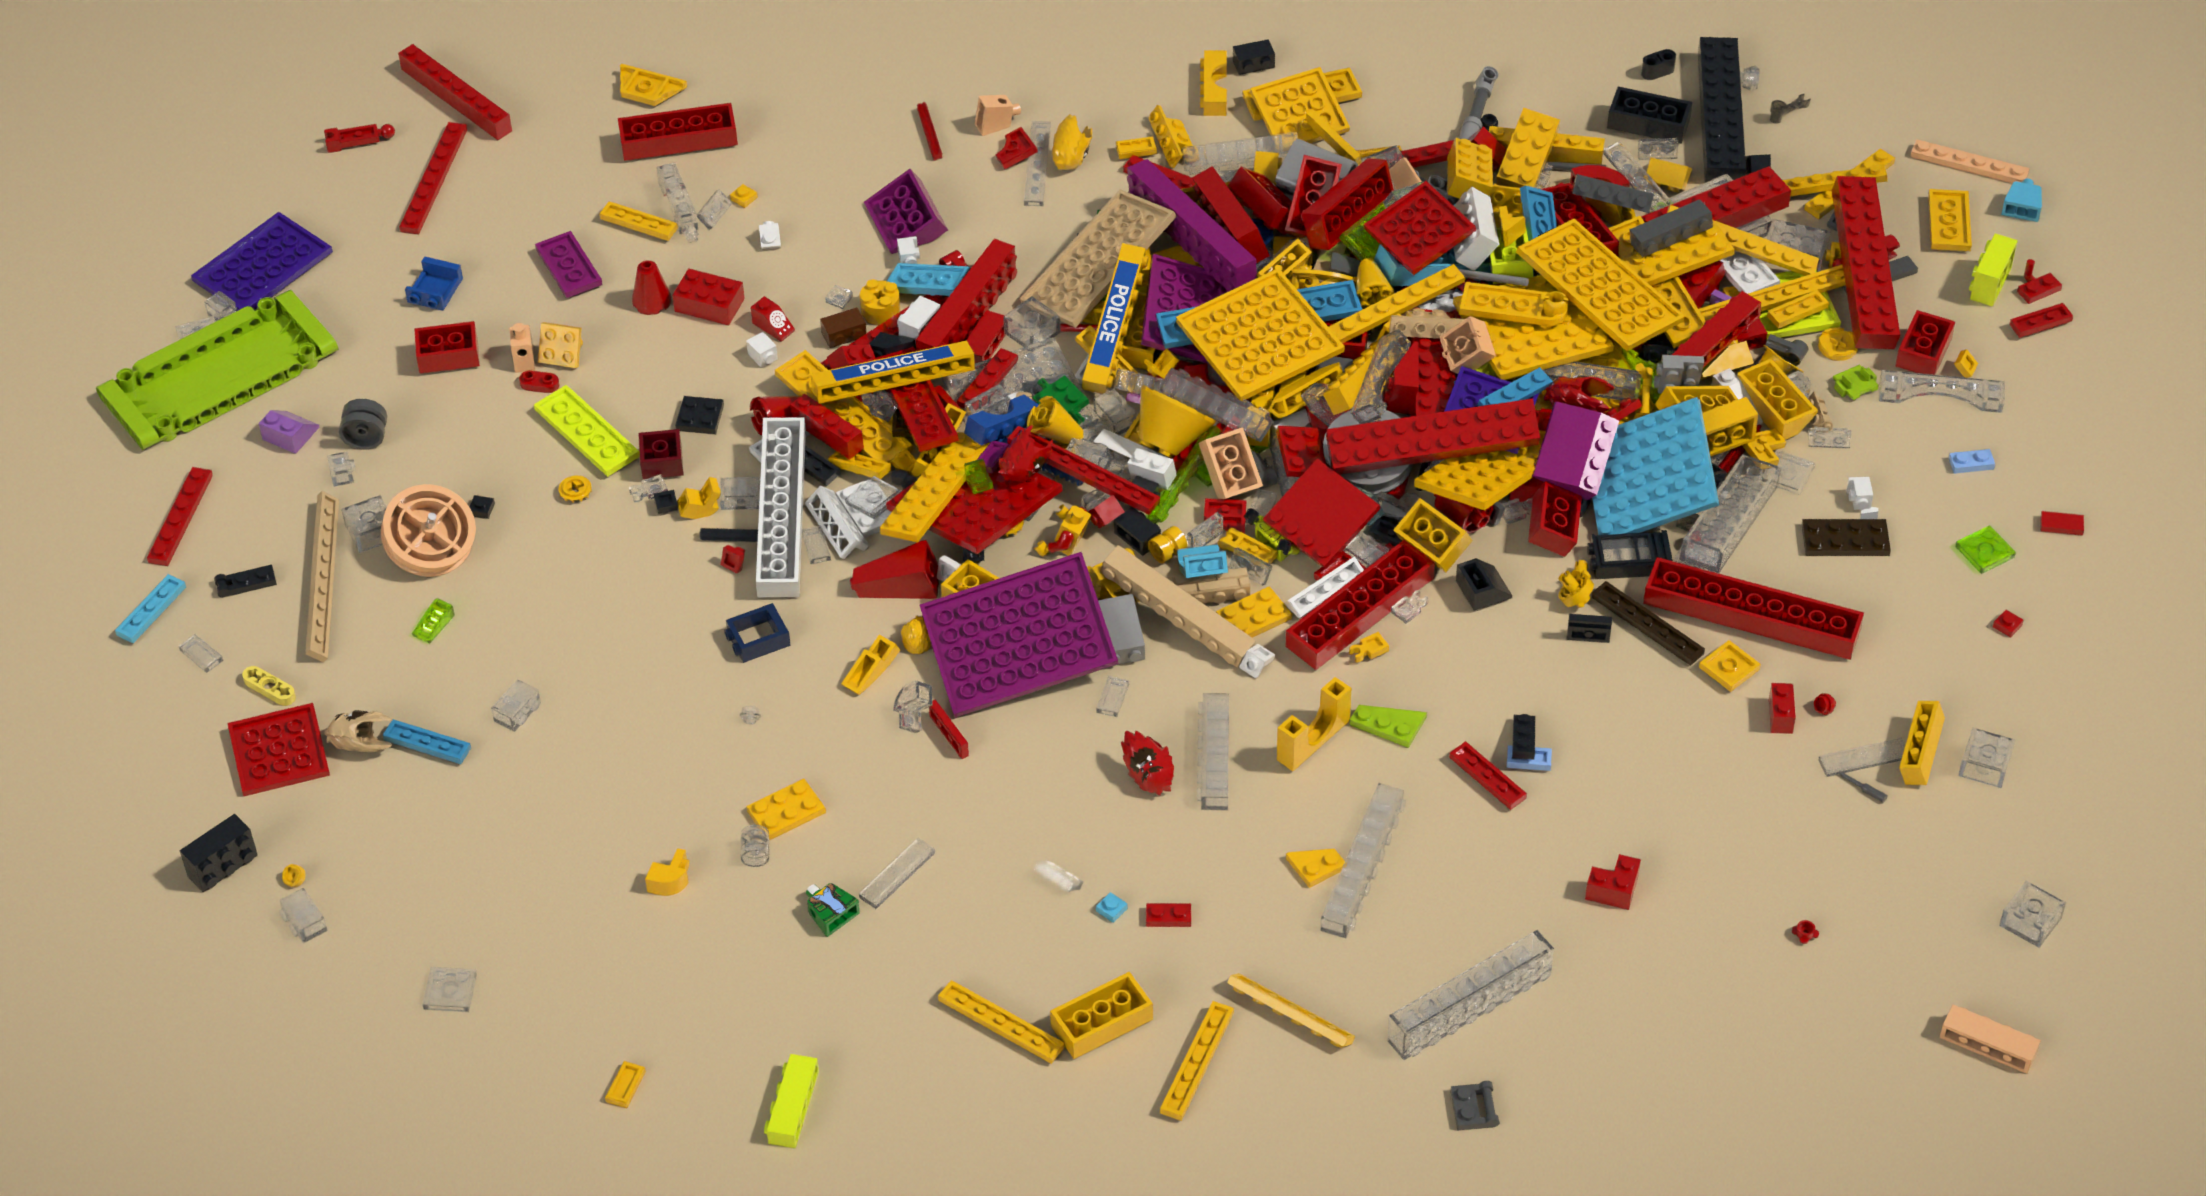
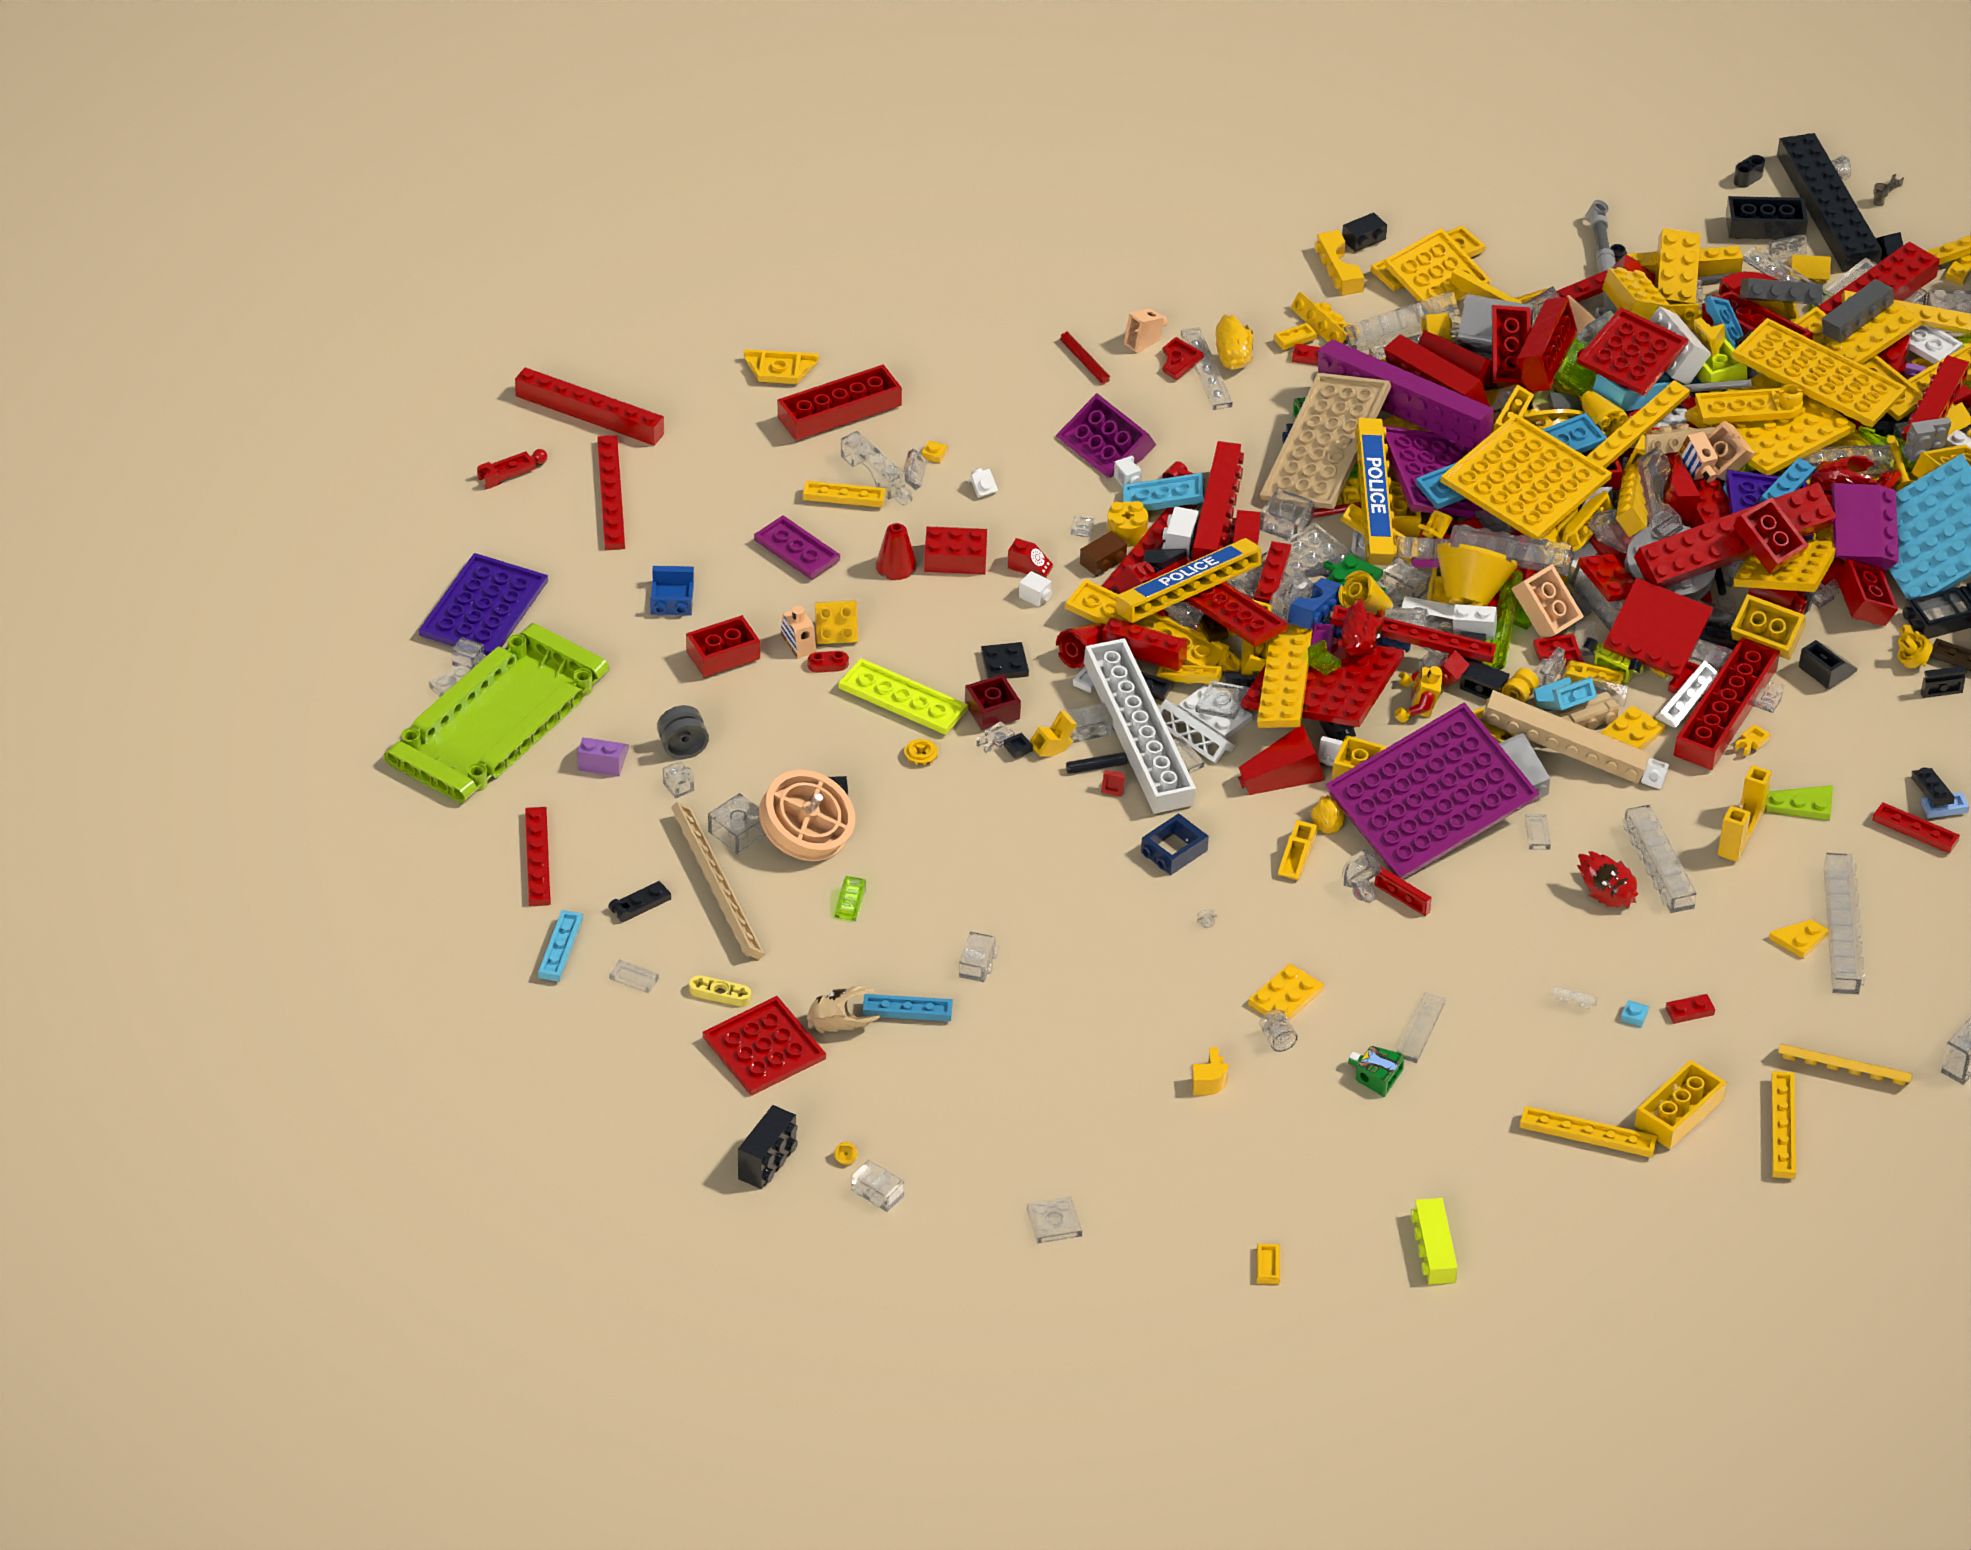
camera: 20 degrees left, 5 degrees down
(1434, 348) = (1698, 457): none -> light nougat torso
(1458, 444) = (1770, 535): none -> red brick

